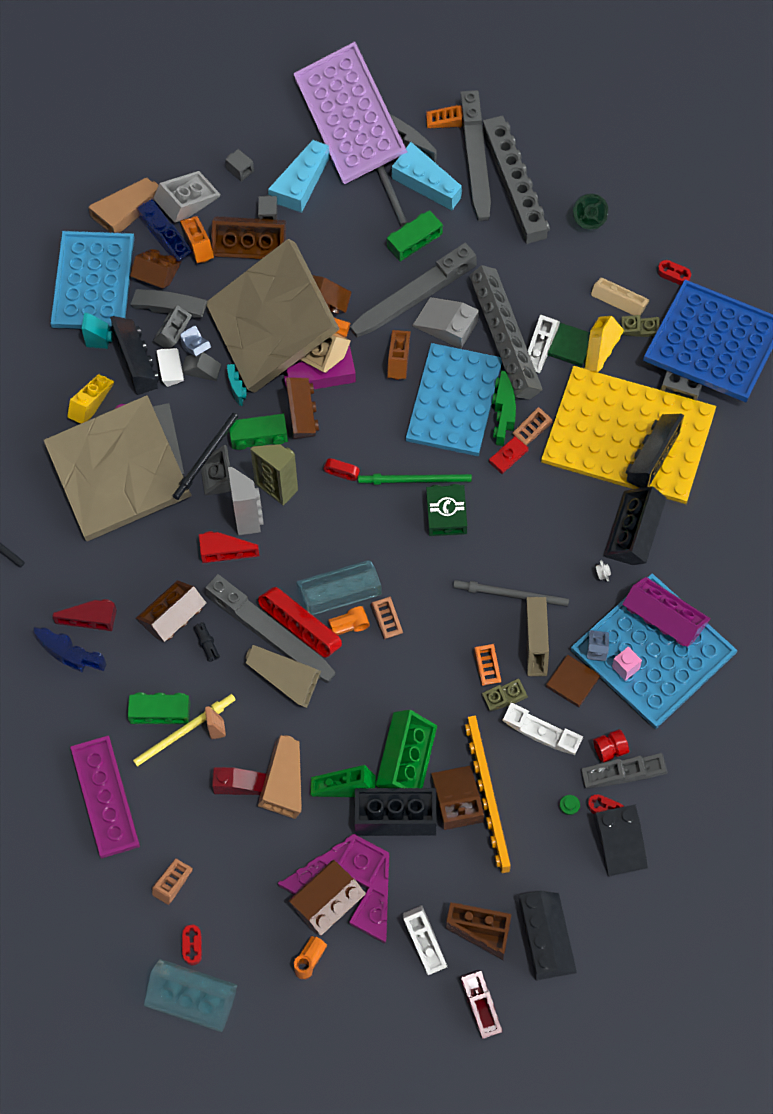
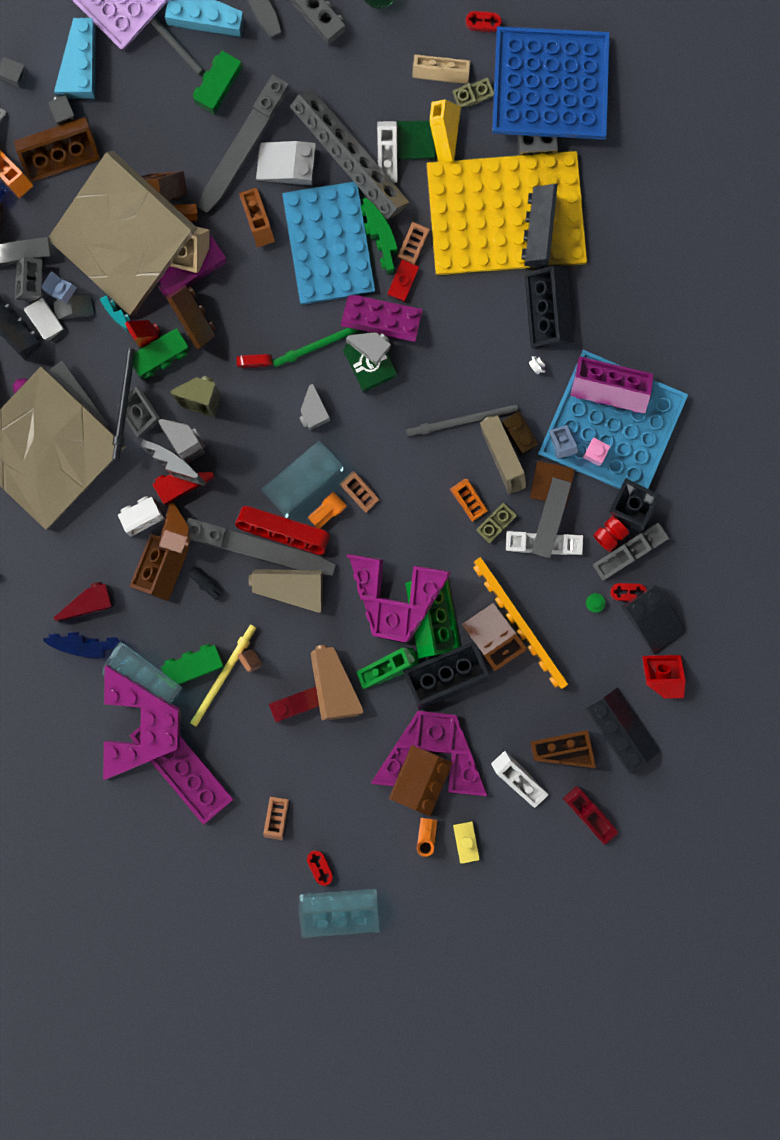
camera: 25 degrees left, 20 degrees up
(100, 745) = (158, 725): none -> magenta wing
(106, 699) = (139, 670): none -> clear light blue slope
(175, 560) = (140, 516): none -> white slope
(198, 577) = (174, 530): none -> dark orange slope
(225, 521) = (172, 463): none -> slope
(251, 403) = (143, 332): none -> red slope
(346, 980) = (466, 842): none -> light yellow tile
(368, 738) = (390, 617): none -> magenta wing
(375, 530) = (313, 410): none -> light grey slope
(453, 490) = (370, 345): none -> light grey slope
(475, 475) = (381, 317): none -> magenta plate
(558, 708) = (551, 517): none -> dark grey slope
(561, 623) = (520, 433): none -> dark brown brick
(610, 899) = (665, 675): none -> red slope
(643, 727) = (634, 505): none -> black slope

